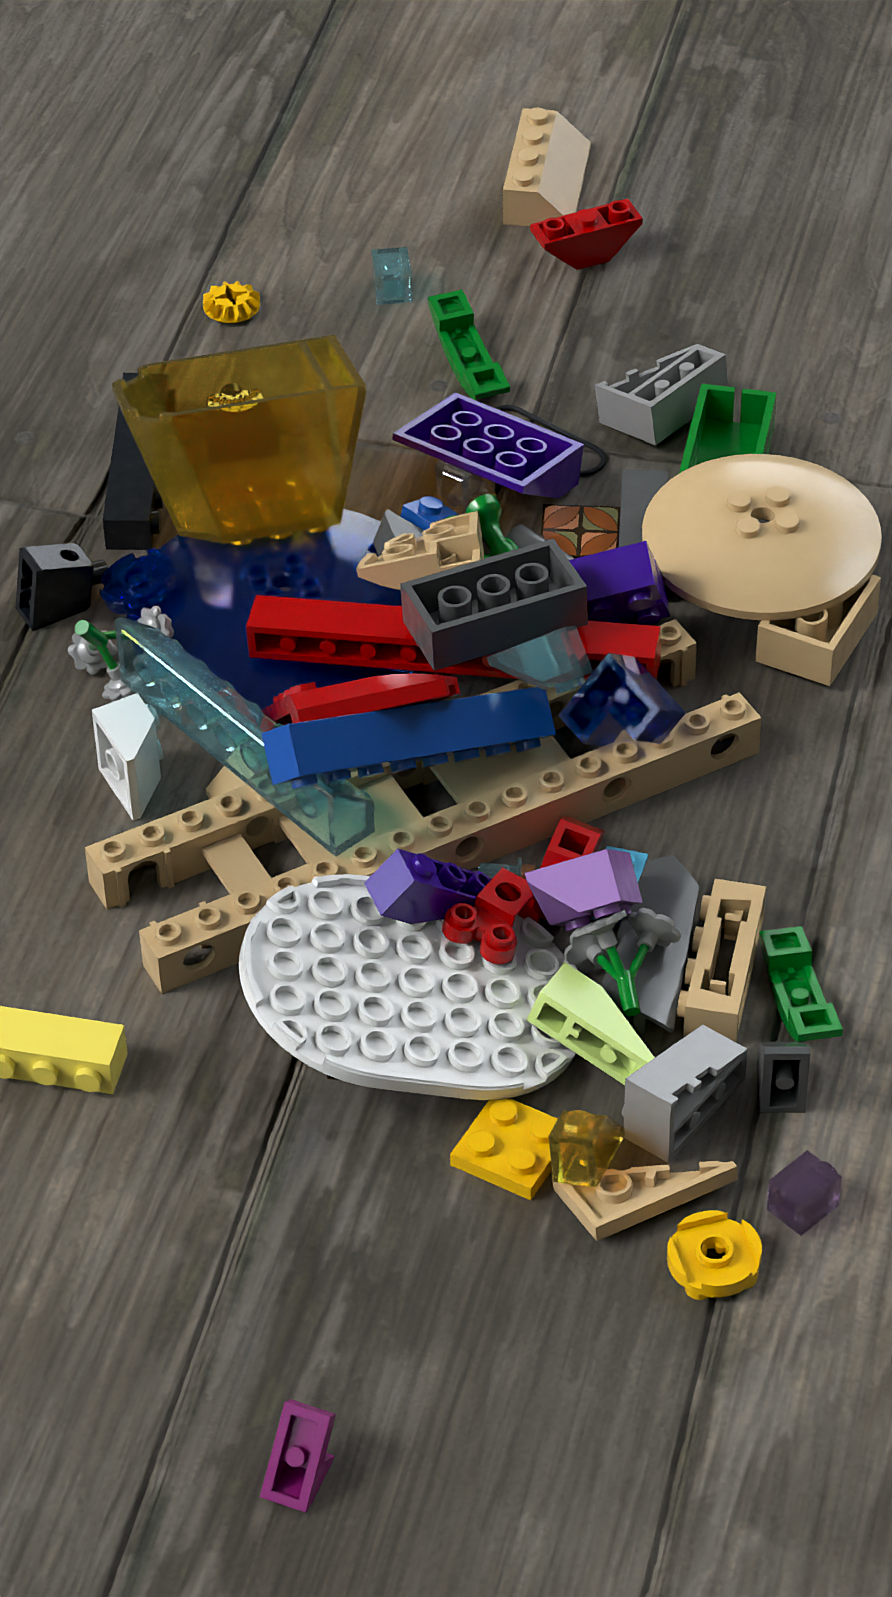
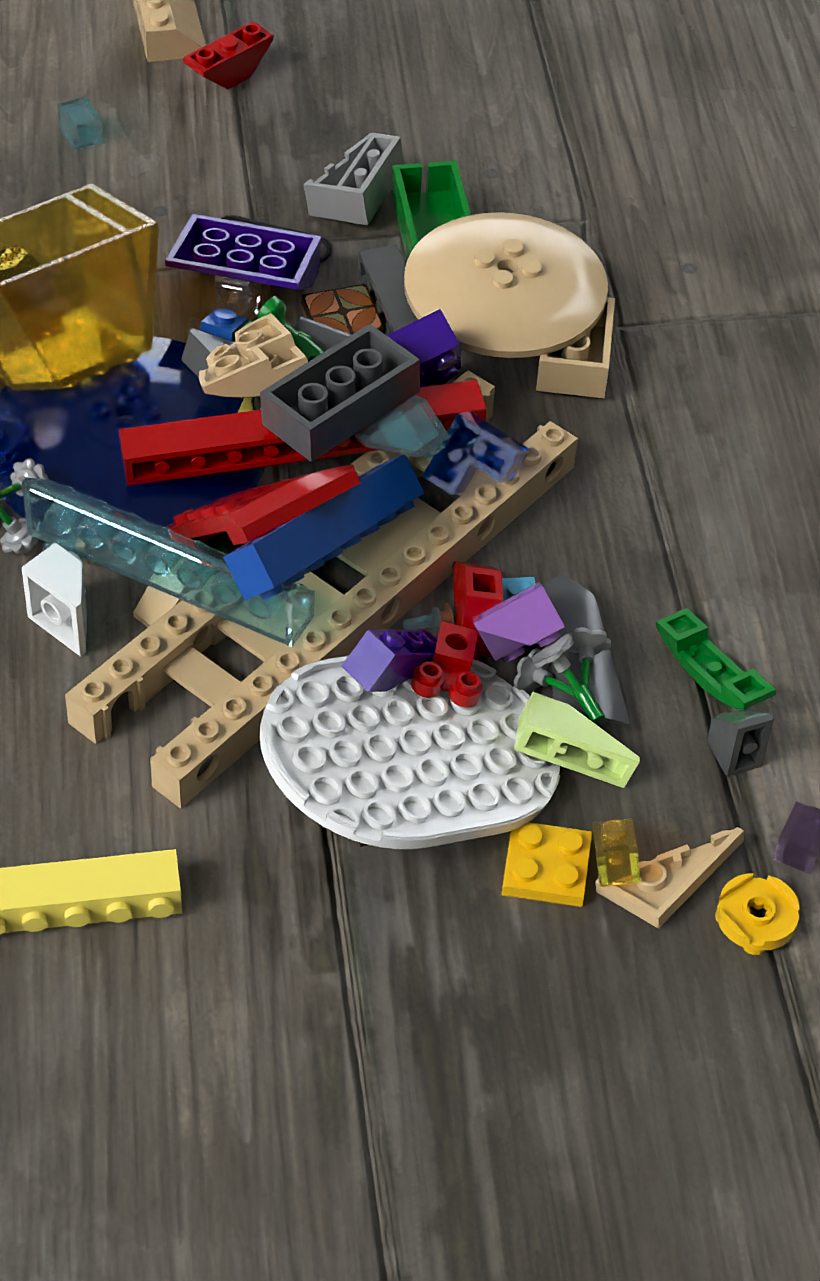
camera: 25 degrees left, 5 degrees up
(299, 1456) = (513, 1203): magenta slope -> none
(464, 346) = (170, 175): green slope -> none
(681, 1091) = (665, 777): light grey wedge -> none
(740, 912) = (660, 696): tan brick -> none

